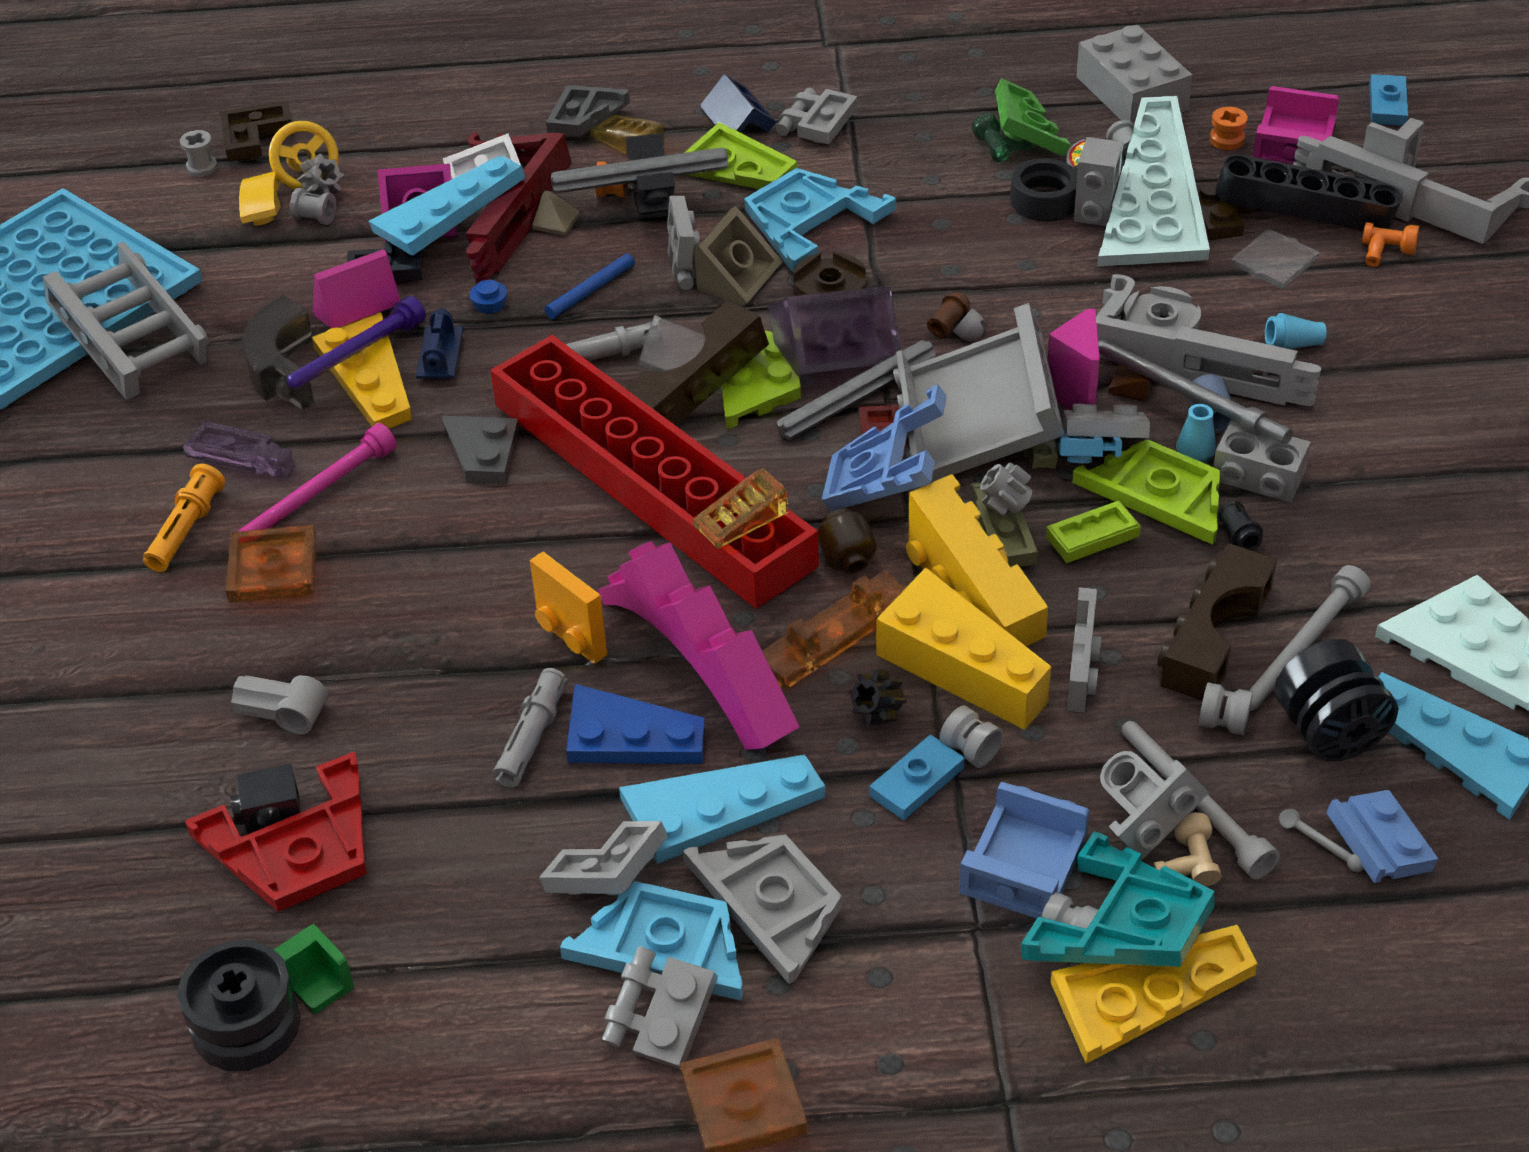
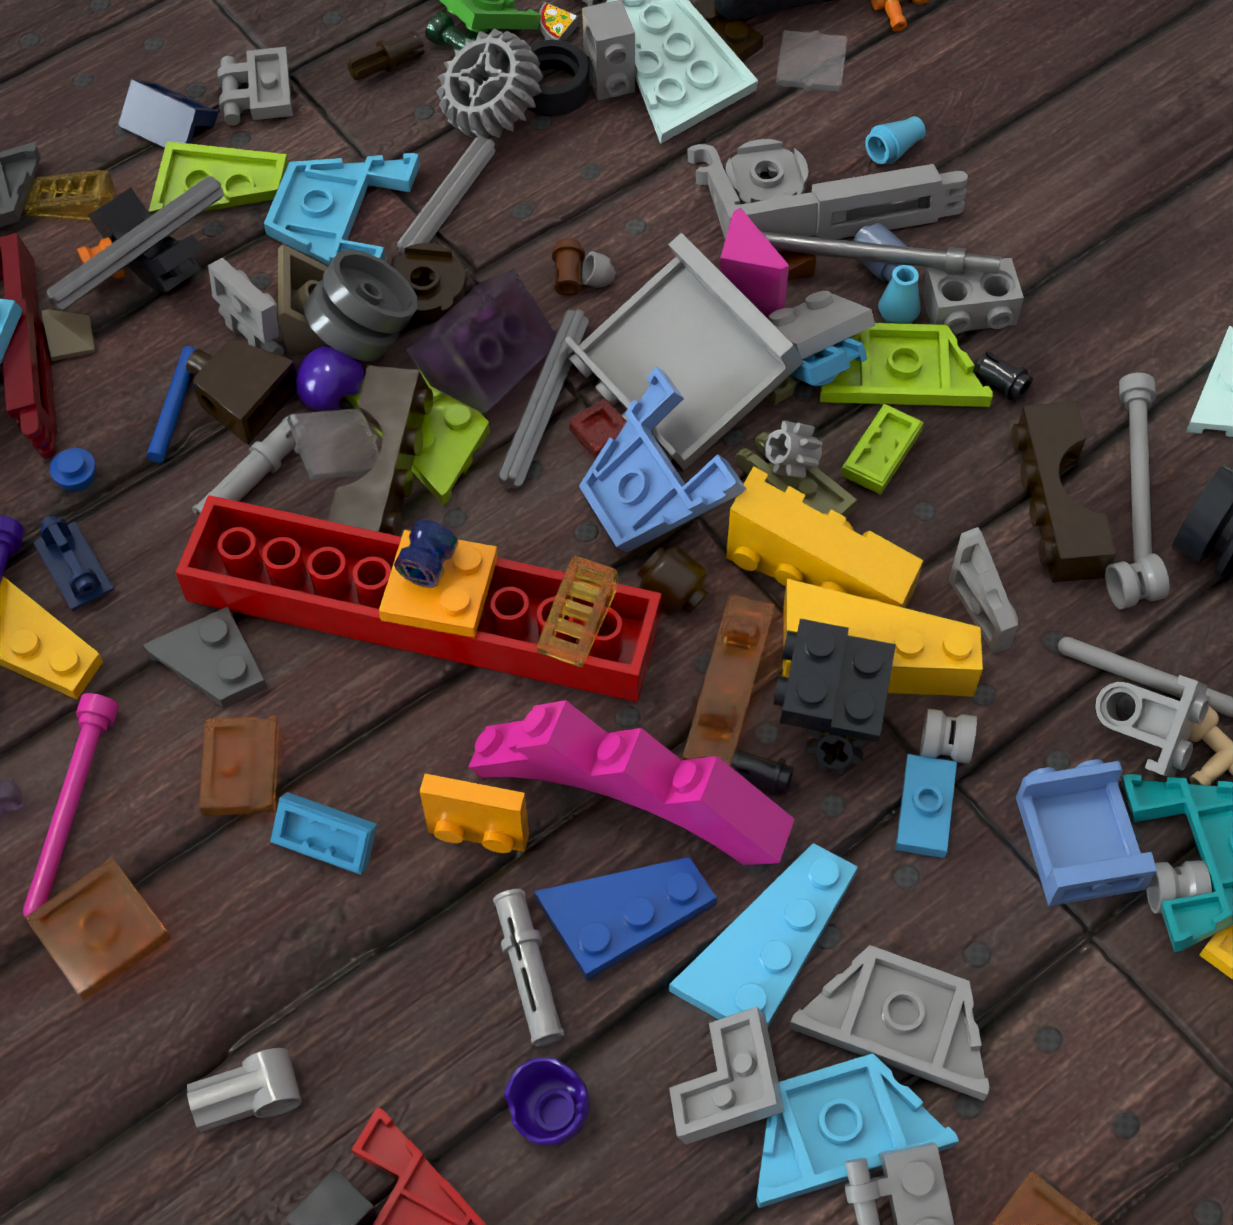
camera: 35 degrees left, 15 degrees up
(443, 514) = (239, 765): none -> clear orange plate
(462, 579) = (323, 833): none -> dark azure plate
(468, 806) = (547, 1101): none -> dark purple hair
(644, 289) = (242, 386): none -> dark brown torso
(657, 418) = (427, 551): none -> clear blue wheel
(660, 451) = (456, 600): none -> light orange plate
(700, 304) = (327, 377): none -> dark purple hair
(761, 266) = (360, 305): none -> dark grey wheel
(814, 699) = (763, 771): none -> black pin
(894, 639) = (834, 681): none -> black plate
(902, 234) = (448, 193): none -> light grey axle
(928, 130) = (385, 55): none -> dark brown axle
(984, 170) = (482, 75): none -> light grey gear

